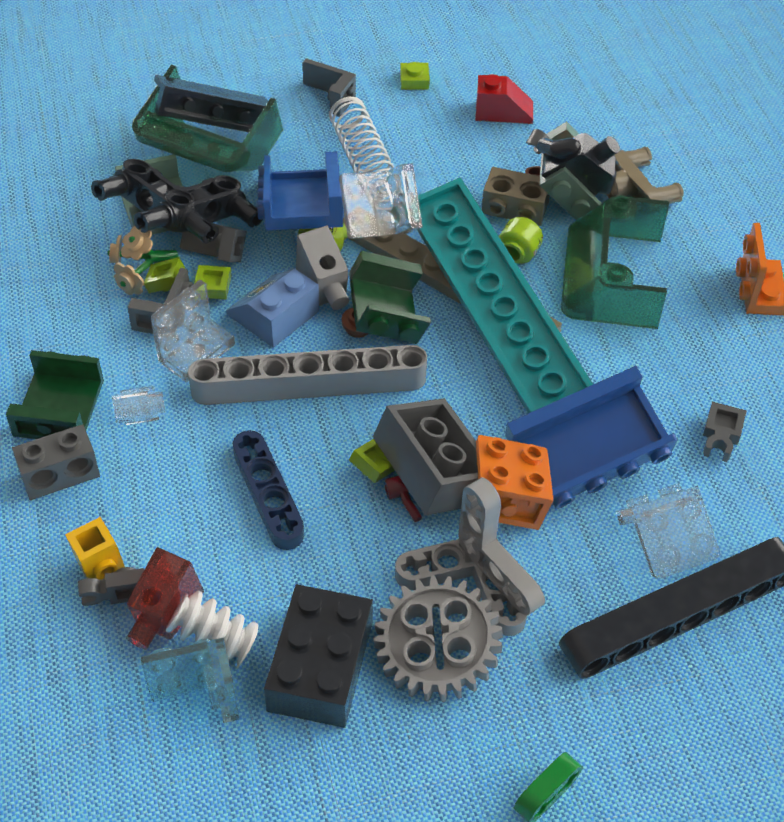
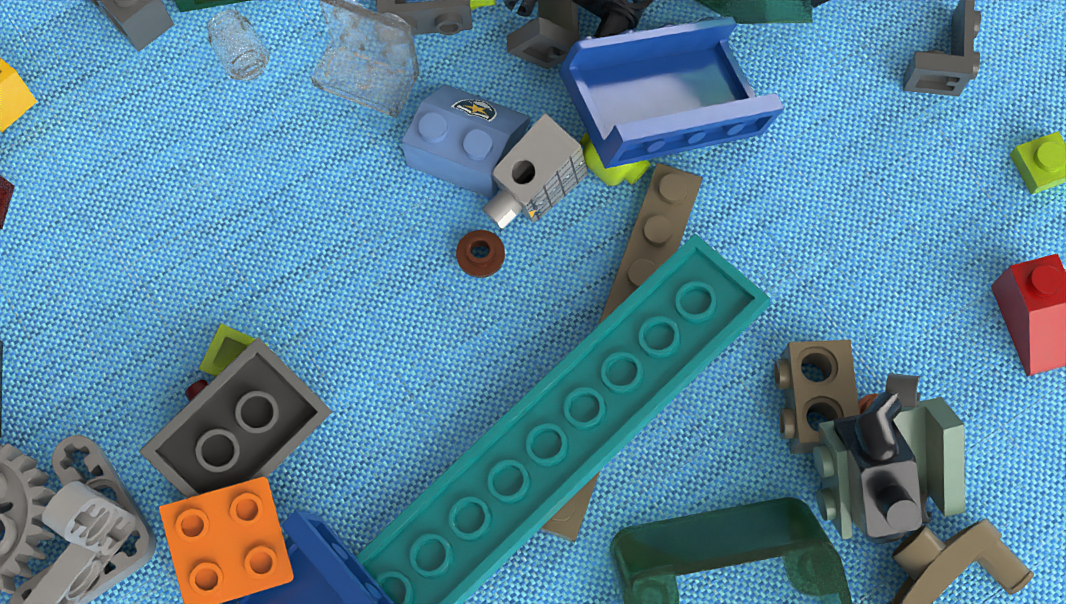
camera: 75 degrees right, 20 degrees up
(216, 278) = (480, 48): lime plate -> none
(271, 487) = (166, 249): dark blue beam -> none
(307, 374) = (358, 245): light grey beam -> none
(355, 100) = (718, 208): white piece -> none
(380, 202) = (665, 196): clear bracket -> none
(384, 297) = (514, 278): dark green panel -> none
(522, 239) = (722, 429): lime head -> none

